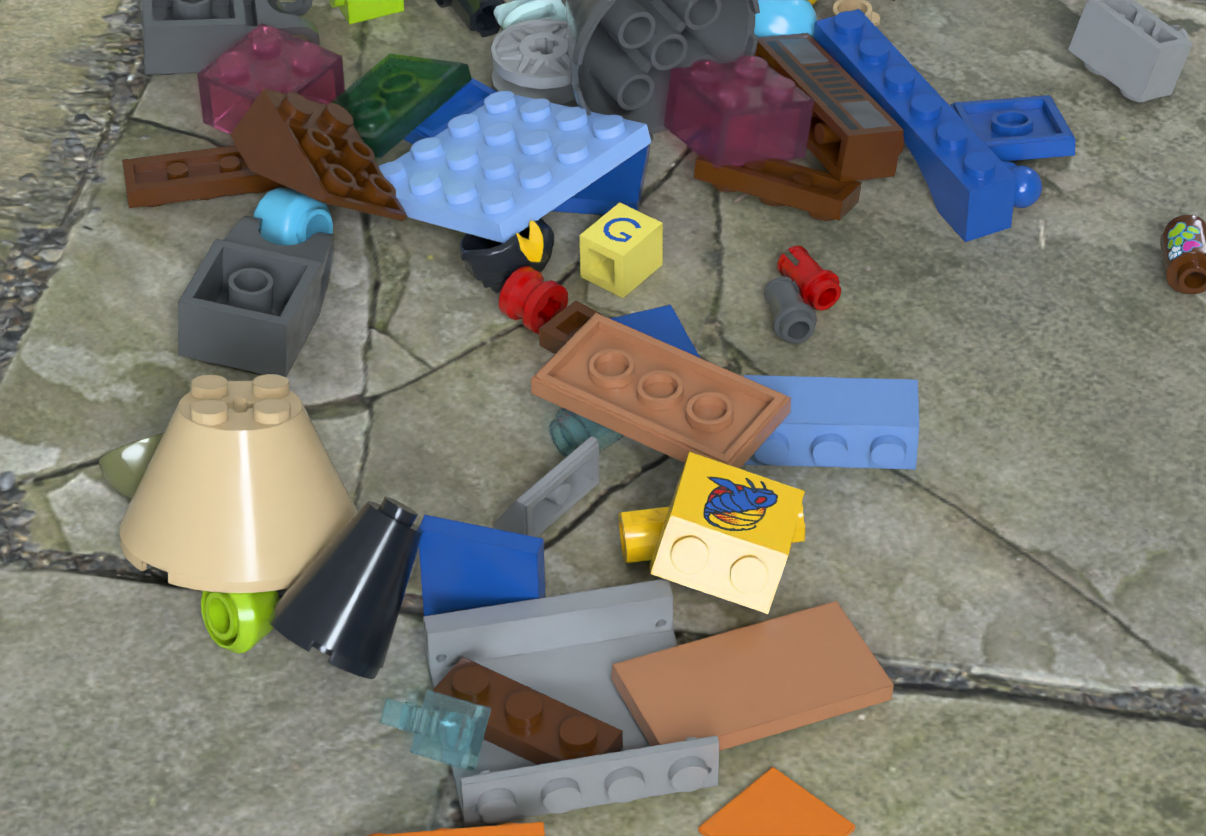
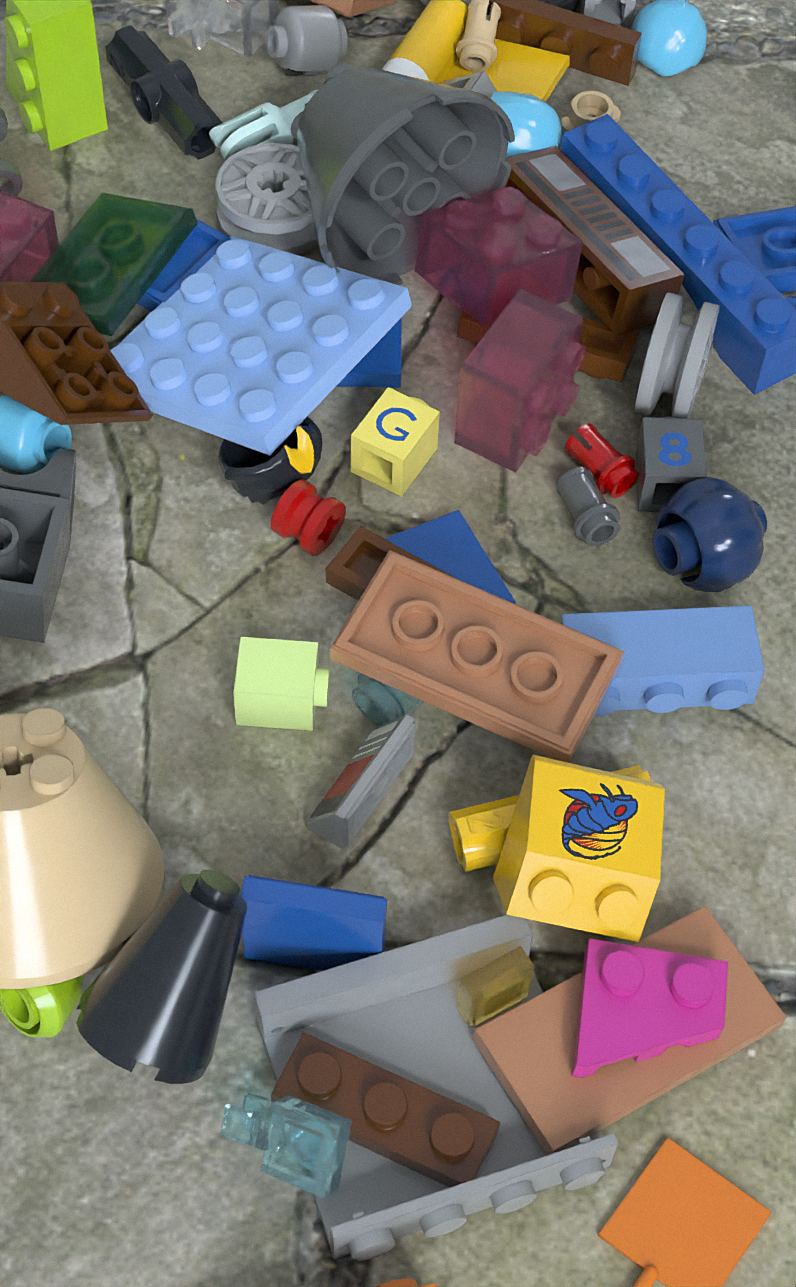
camera: 10 degrees left, 15 degrees up
(485, 416) = (279, 683): none -> yellowish green brick
(634, 632) = (495, 986): none -> clear yellow tile
(737, 204) = (519, 381): none -> clear pink brick
(766, 656) = (644, 1002): none -> dark pink wing
(869, 282) = (667, 457): none -> dark grey brick
(886, 196) = (676, 357): none -> light grey wheel
(898, 330) = (710, 527): none -> dark blue plant

